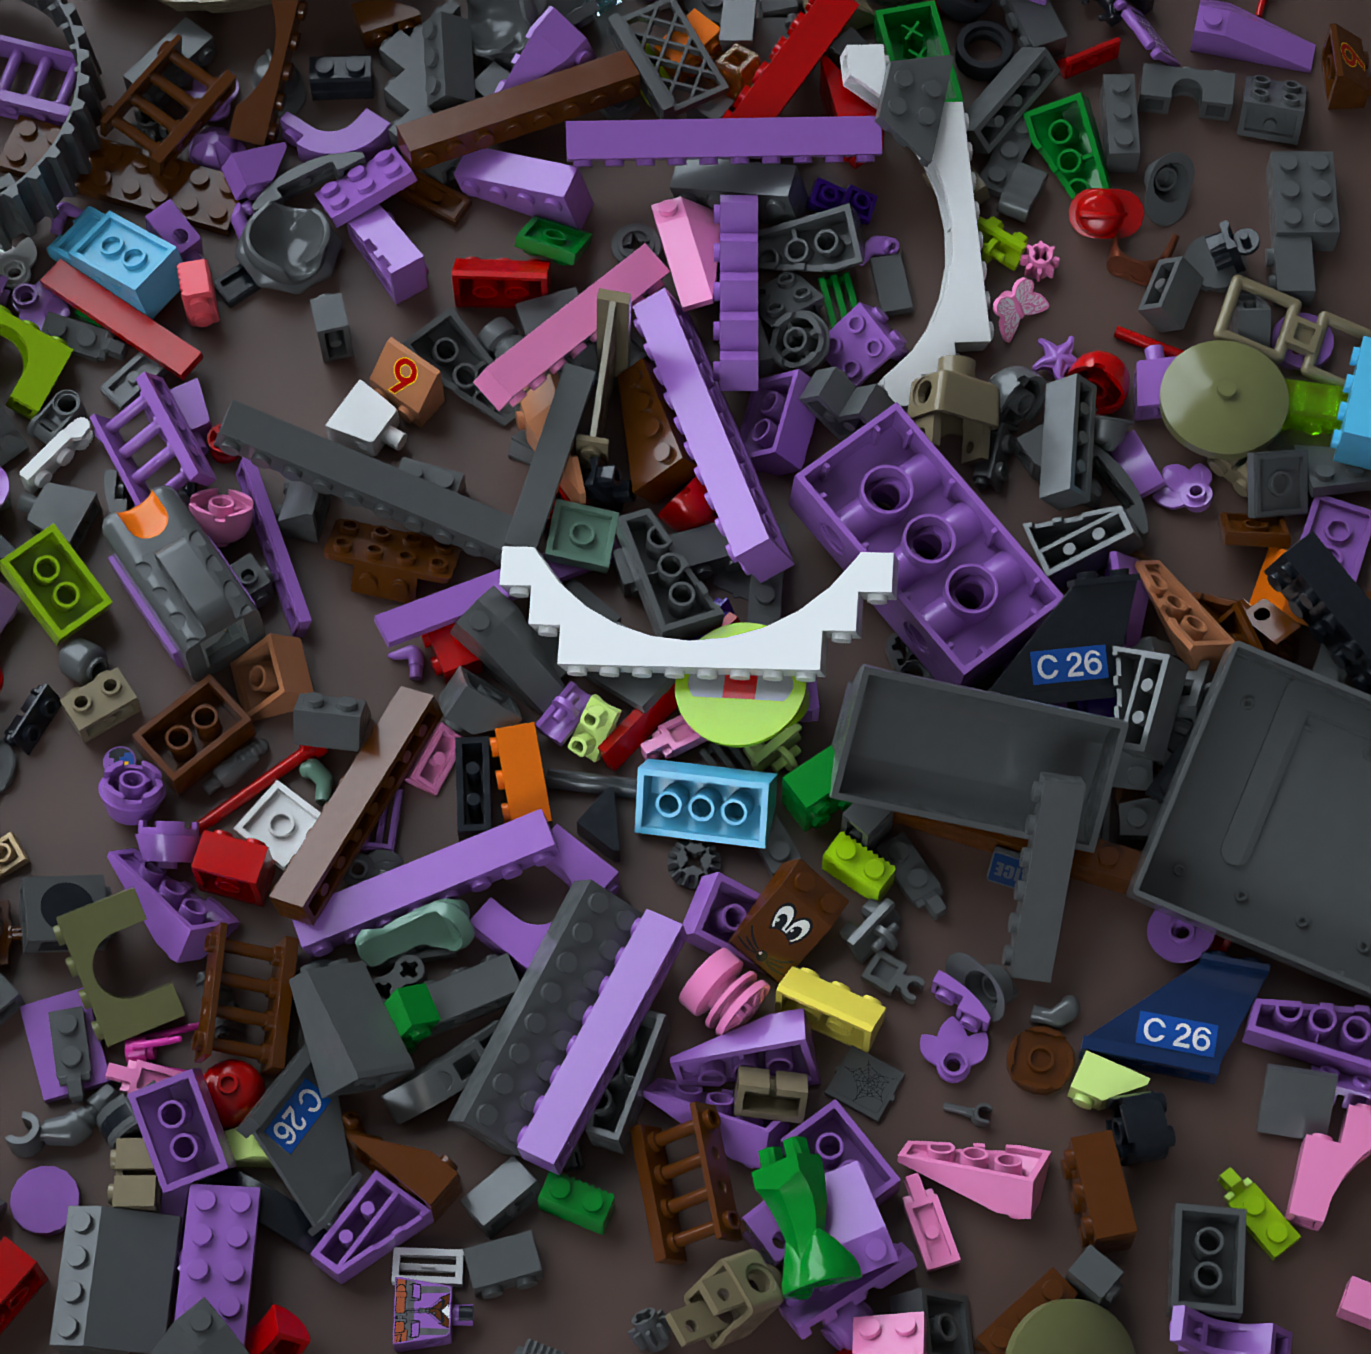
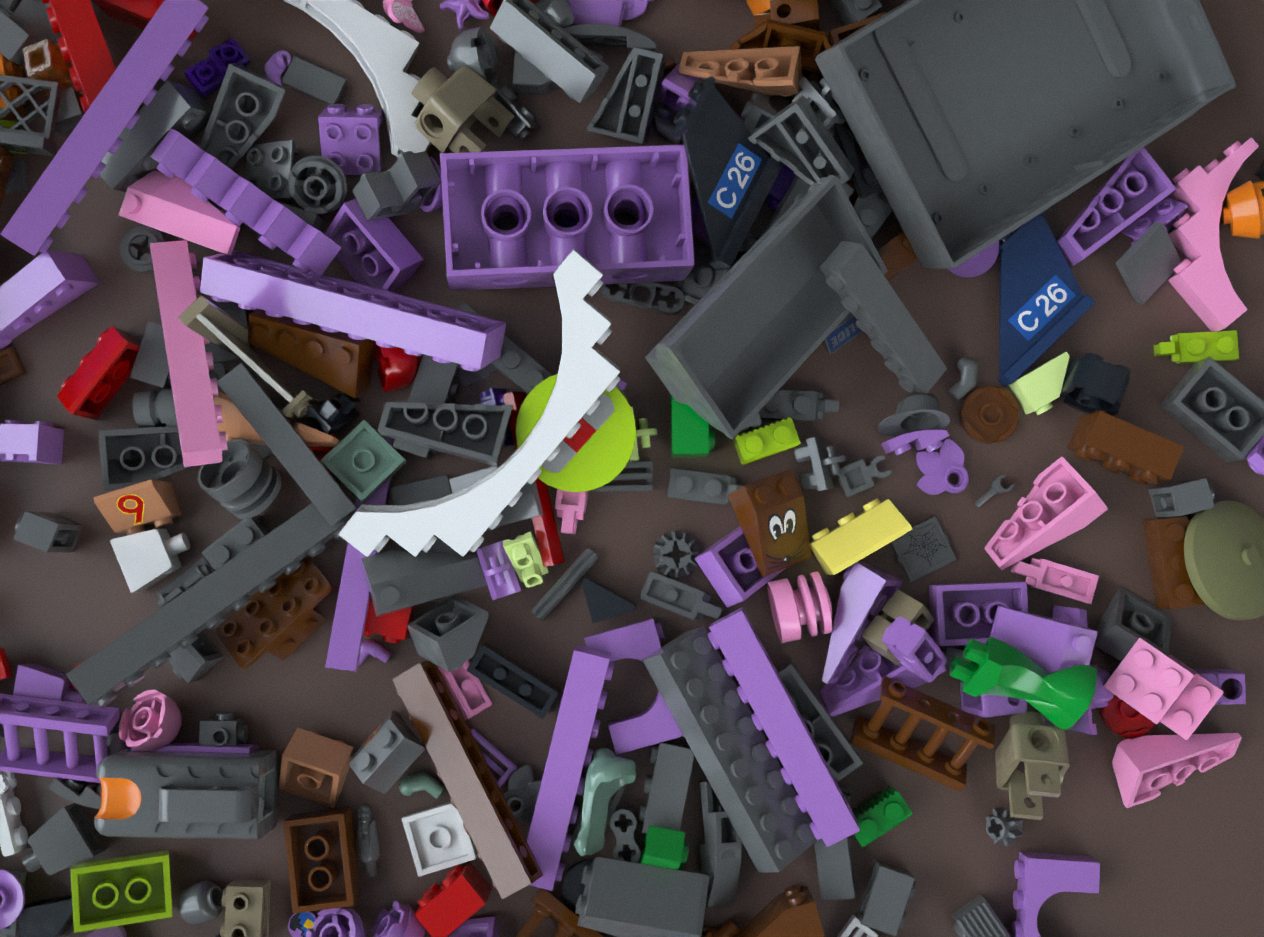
camera: 55 degrees left, 20 degrees up
(260, 784) = (395, 842): red piece -> none
(274, 549) = (217, 699): medium lavender tile -> none
(491, 444) = (242, 481): none -> dark grey wheel
(520, 771) = (527, 637): orange wedge -> none
(553, 240) = (94, 310): green plate -> none
(653, 881) = (678, 597): none -> dark grey hinge
(705, 802) = (641, 517): medium azure slope -> none
(759, 1100) = (914, 649): none -> medium lavender brick
(835, 282) = (282, 121): green tile -> none

